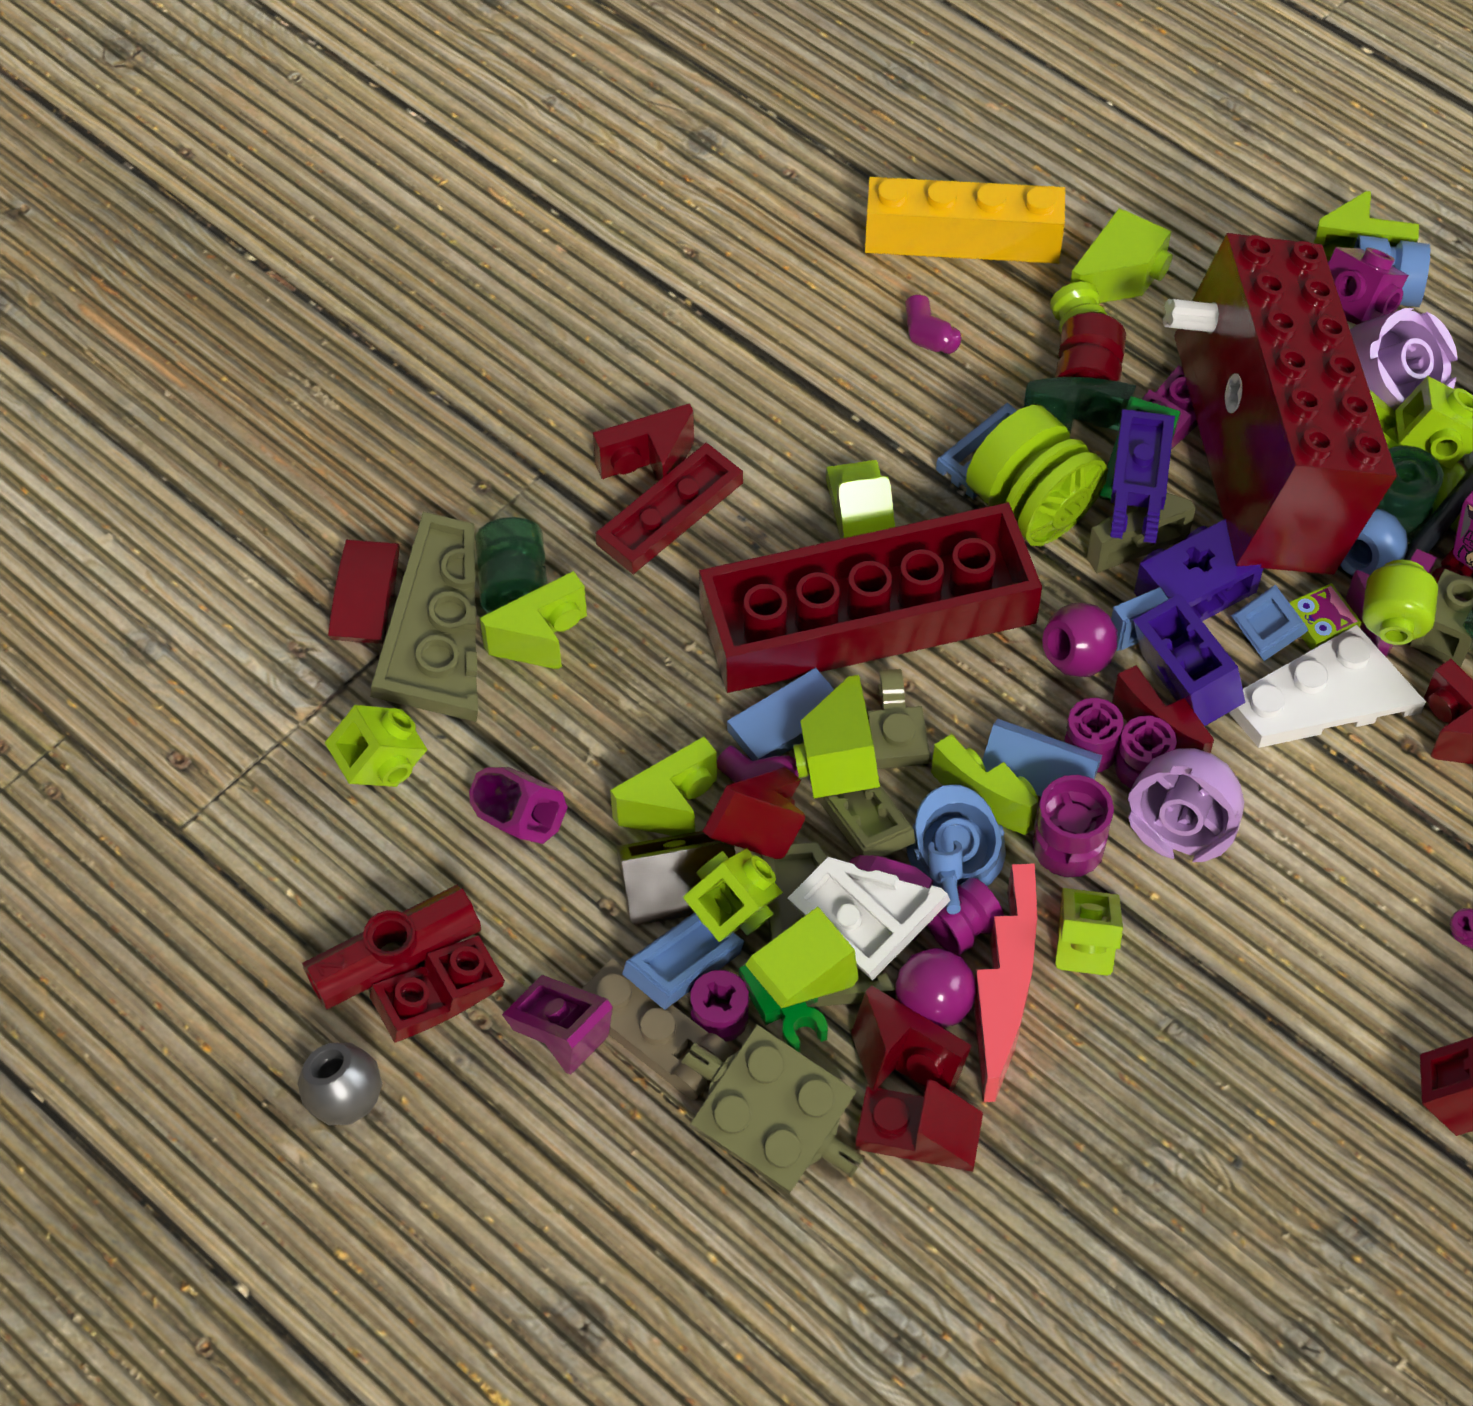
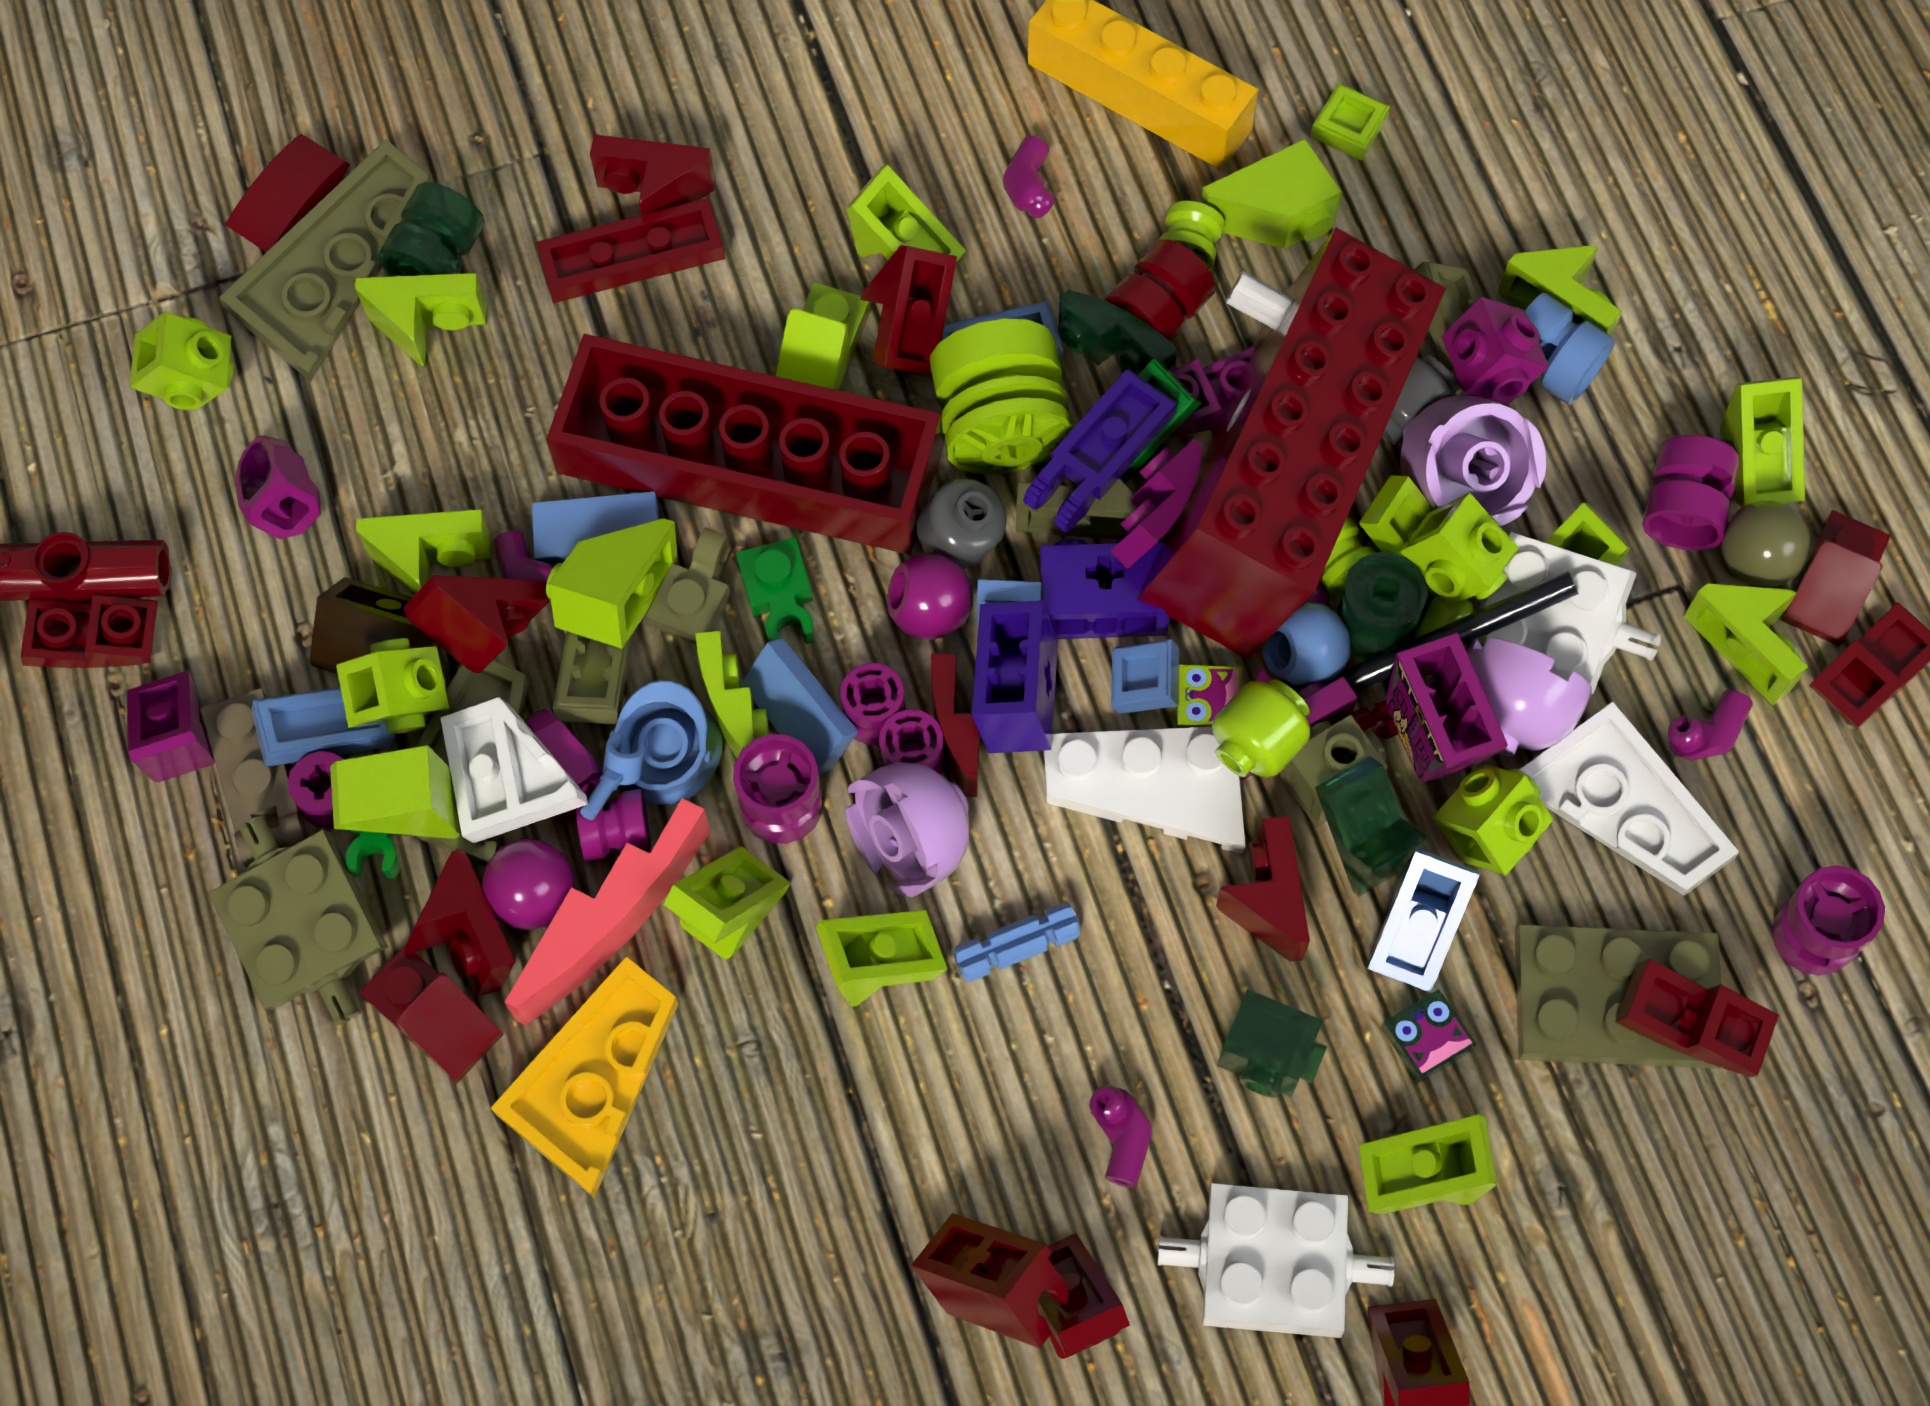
camera: 30 degrees right, 10 degrees up
(873, 397) = (892, 216): none -> lime slope
(920, 437) = (914, 310): none -> dark red slope
(955, 690) = (777, 584): none -> green plate
(1070, 574) = (962, 522): none -> dark grey head
(1078, 1107) = (590, 1075): none -> yellow wing
(1127, 189) = (1350, 121): none -> lime tile
(1212, 487) = (1159, 500): none -> magenta slope
(1226, 905) = (880, 952): none -> lime slope
(1314, 850) = (1017, 942): none -> medium blue axle

